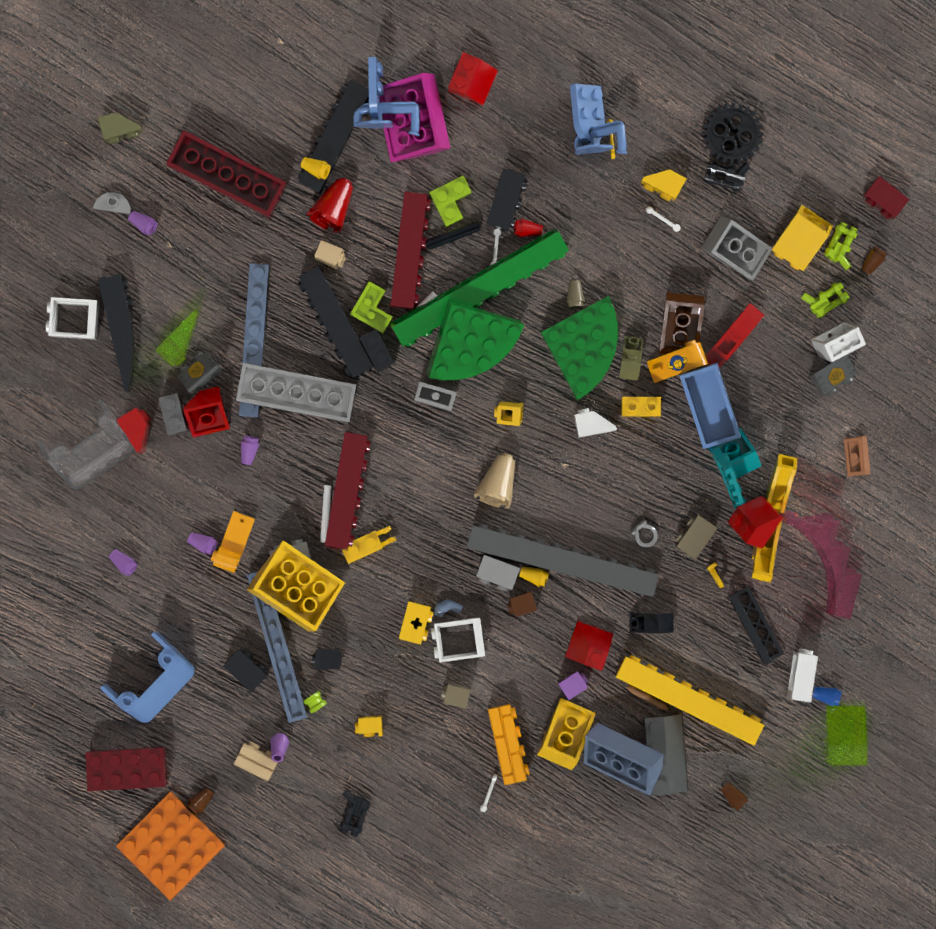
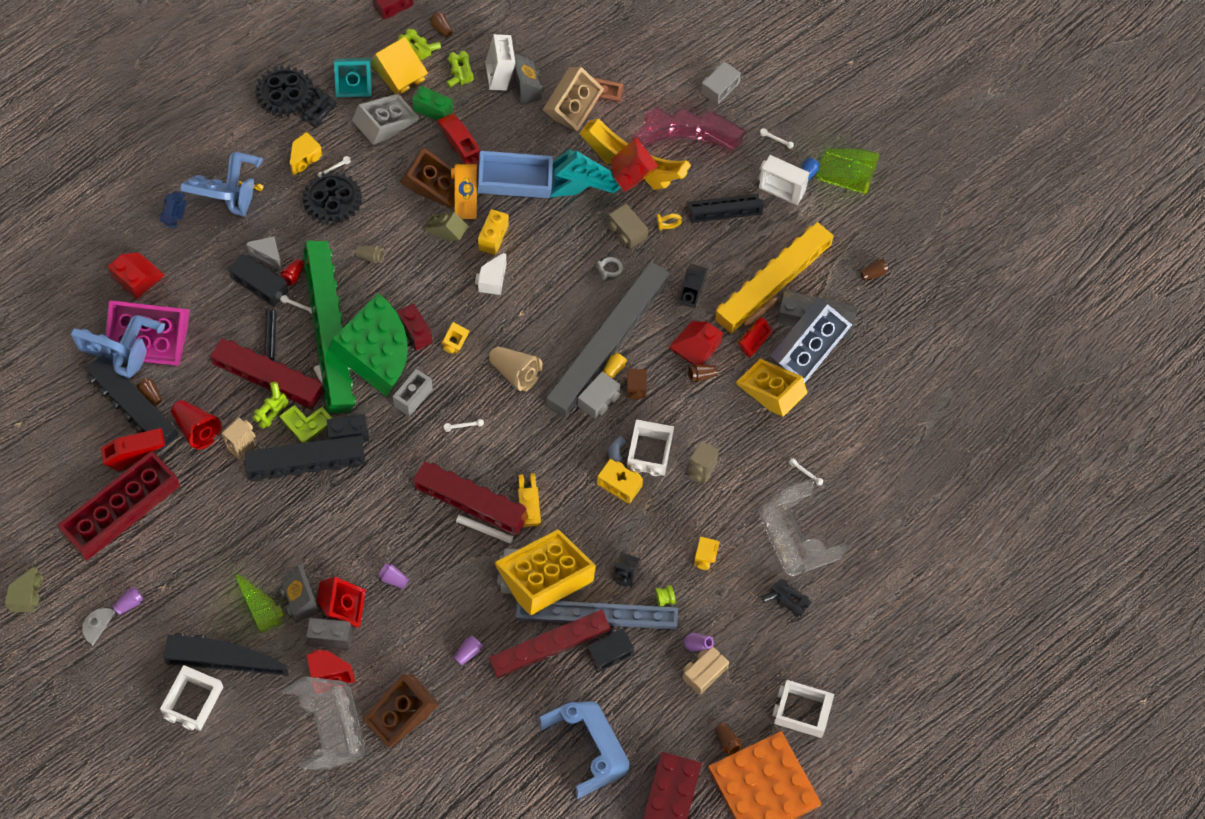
camera: 75 degrees left, 25 degrees down
(124, 563) = (457, 734): medium lavender cone -> none
(126, 505) = (400, 710): none -> reddish brown slope
(229, 615) = (549, 644): none -> dark red brick
(233, 543) = (477, 620): light orange door -> none
(255, 325) = (290, 538): sand blue plate -> none
(259, 879) = (807, 692): none -> white window
(284, 162) = (130, 449): none -> red slope
(295, 392) = (356, 513): light grey plate -> none
(317, 168) = (151, 419): yellow cone -> none
(352, 149) = (150, 391): none -> reddish brown cone
(378, 270) = (276, 403): none -> lime piece
(412, 793) = (791, 548): none -> clear windscreen
(432, 469) = (447, 427): none -> white hinge
(446, 197) = (234, 330): lime plate -> none
(507, 744) = (764, 438): light orange brick -> none
(508, 370) = (415, 327): none -> dark red brick
(541, 195) = (266, 251): none -> light grey slope
(552, 85) = (173, 209): none -> dark blue plate
(558, 662) = (701, 372): none -> reddish brown cone
(573, 684) = (727, 366): medium lavender brick -> none
(584, 345) = (420, 259): green brick -> none
(615, 701) = (755, 337): none -> red plate
(618, 249) = (332, 197): none -> black gear
(768, 290) = (432, 104): none -> green brick
(774, 195) = (353, 77): none -> teal slope
(827, 430) = (573, 98): none -> tan slope
(862, 636) = (763, 132): none -> white hinge
(904, 574) = (720, 82): none -> light grey brick

